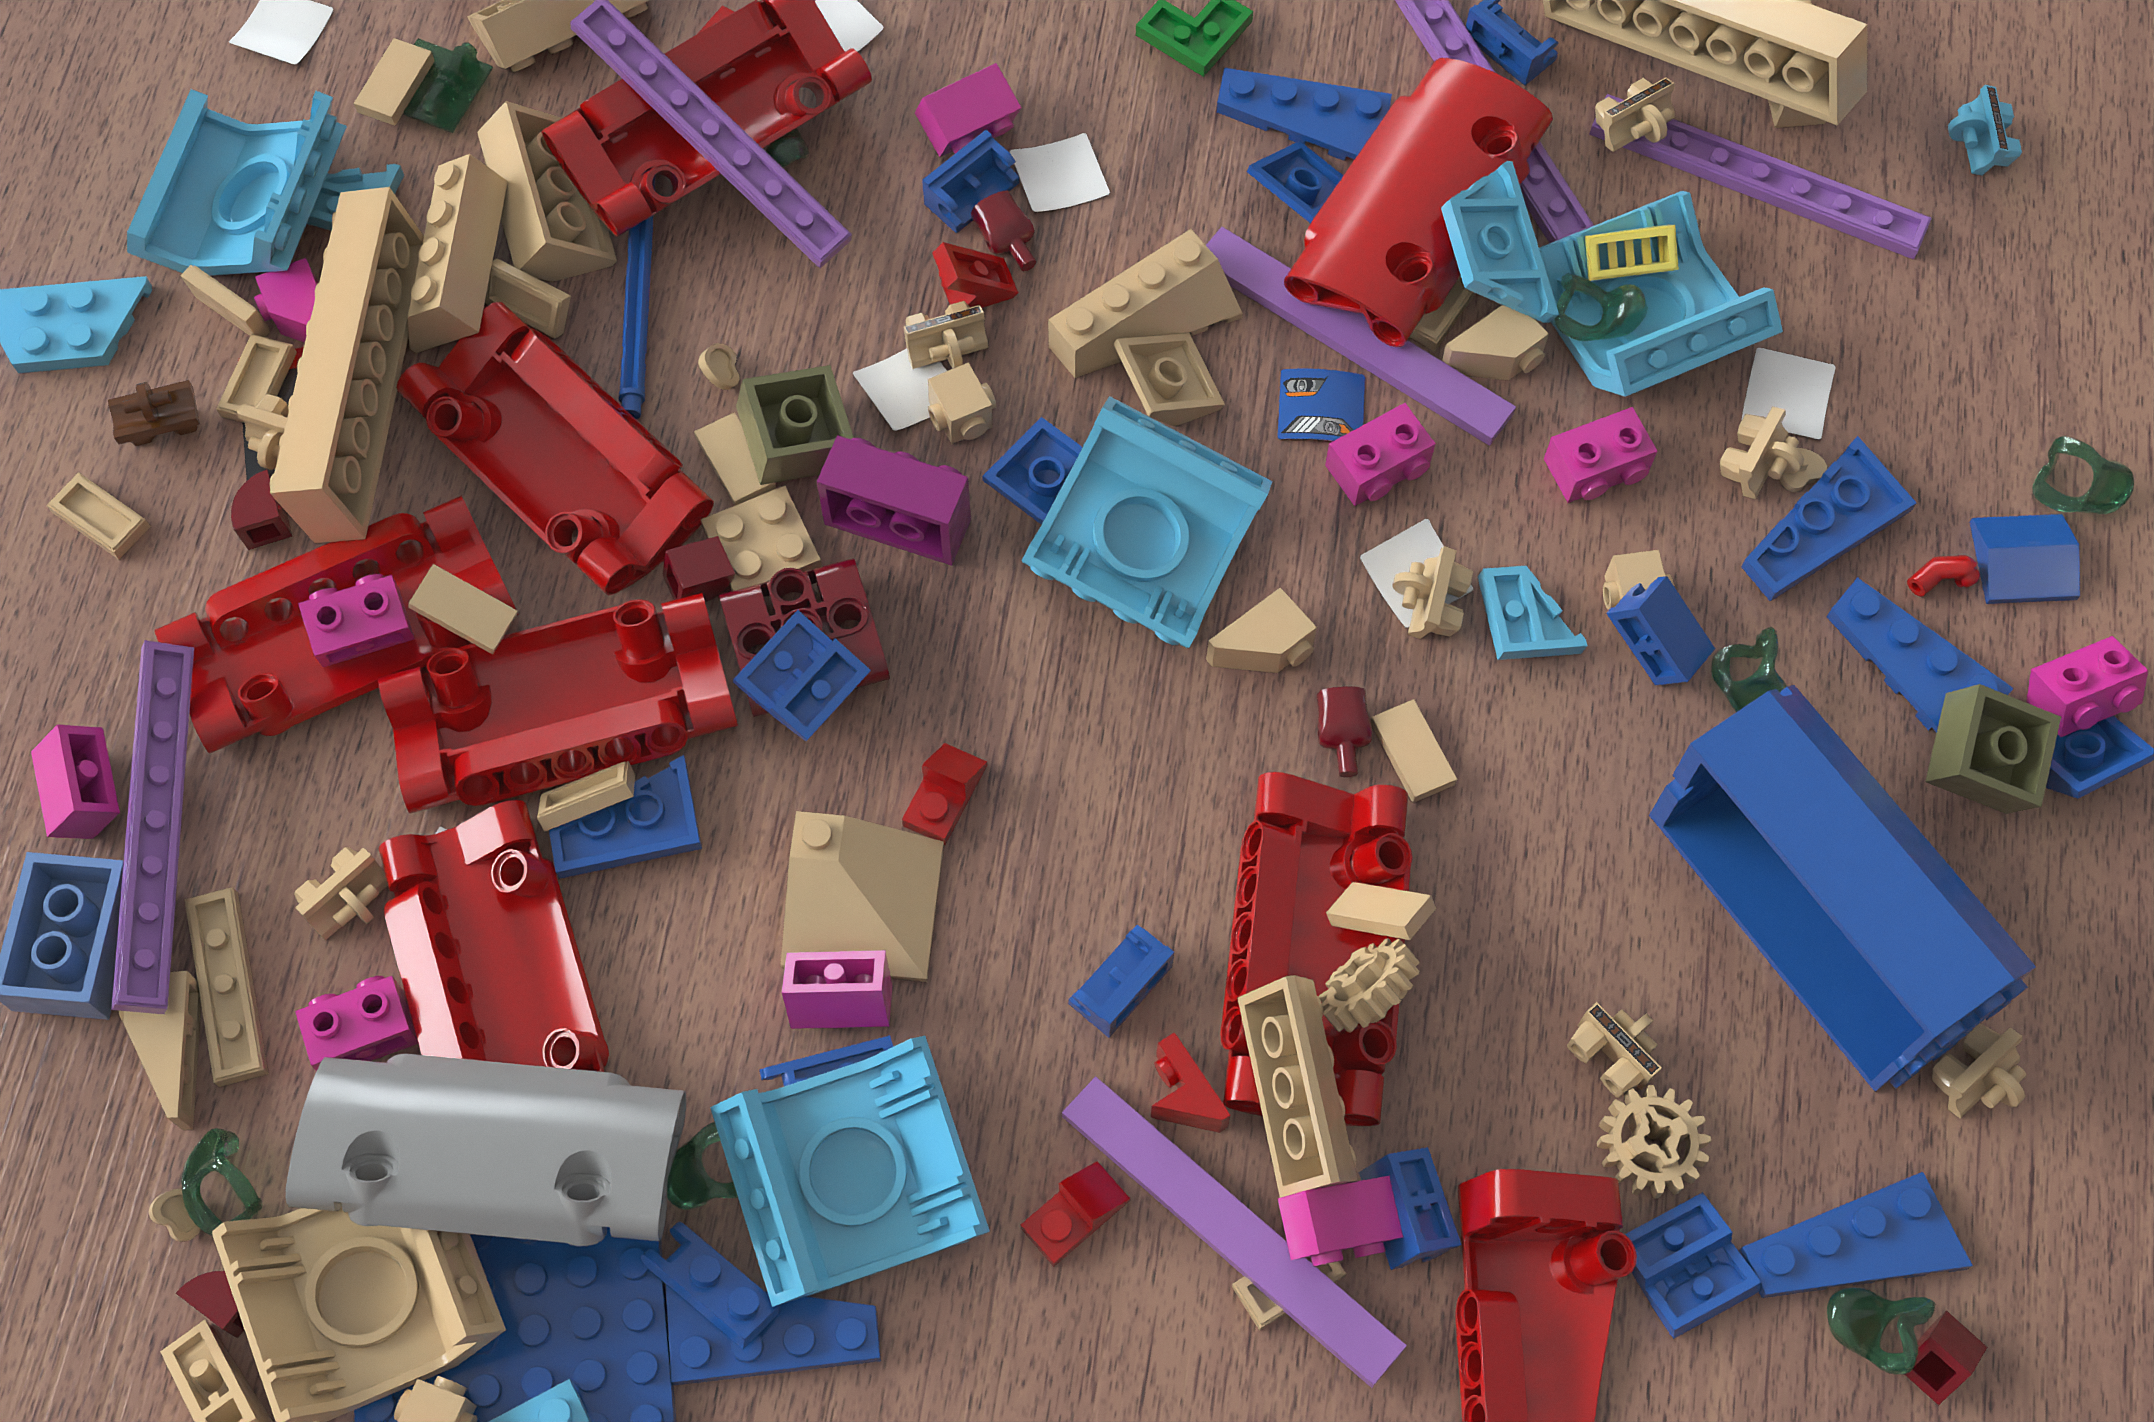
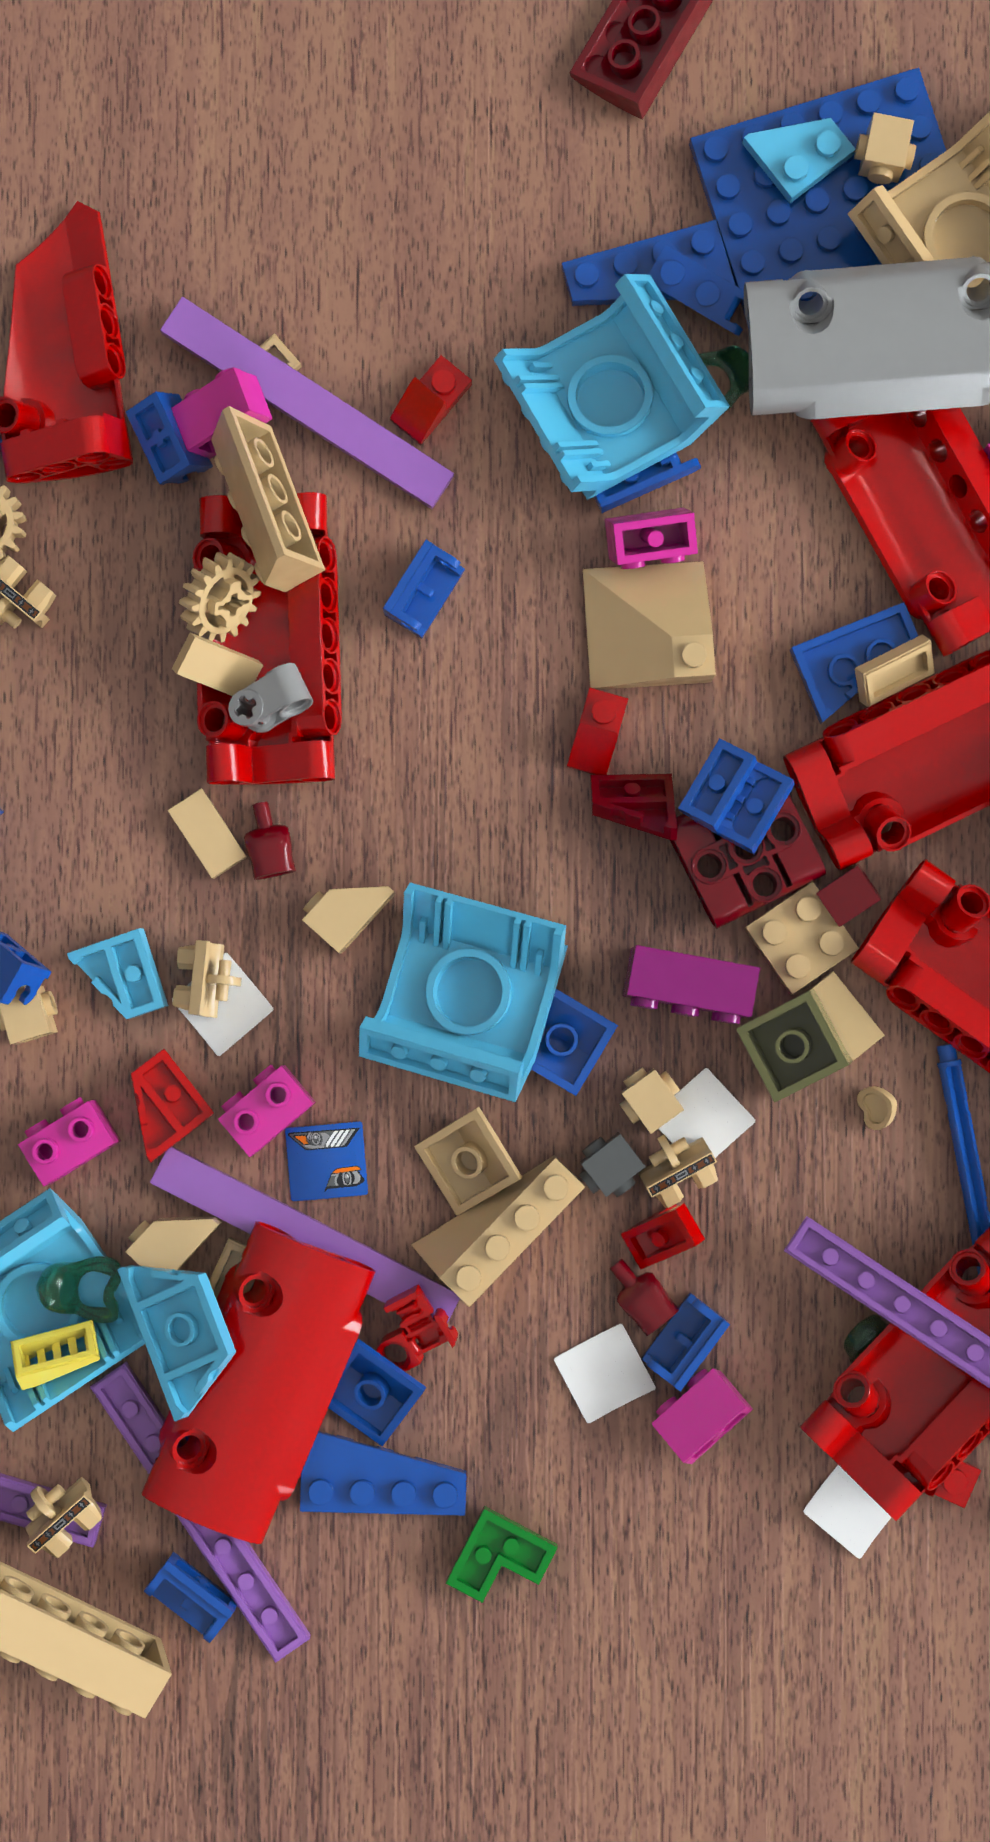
camera: 170 degrees right, 20 degrees up
(915, 700) = (636, 801): none -> dark red wing
(1016, 349) = (610, 1165): none -> dark grey brick
(1194, 1100) = (350, 497): red slope -> none
(1249, 230) = (416, 1324): none -> red piece
(1318, 860) = (271, 699): none -> light grey piece
(1489, 476) = (166, 1104): none -> red wing

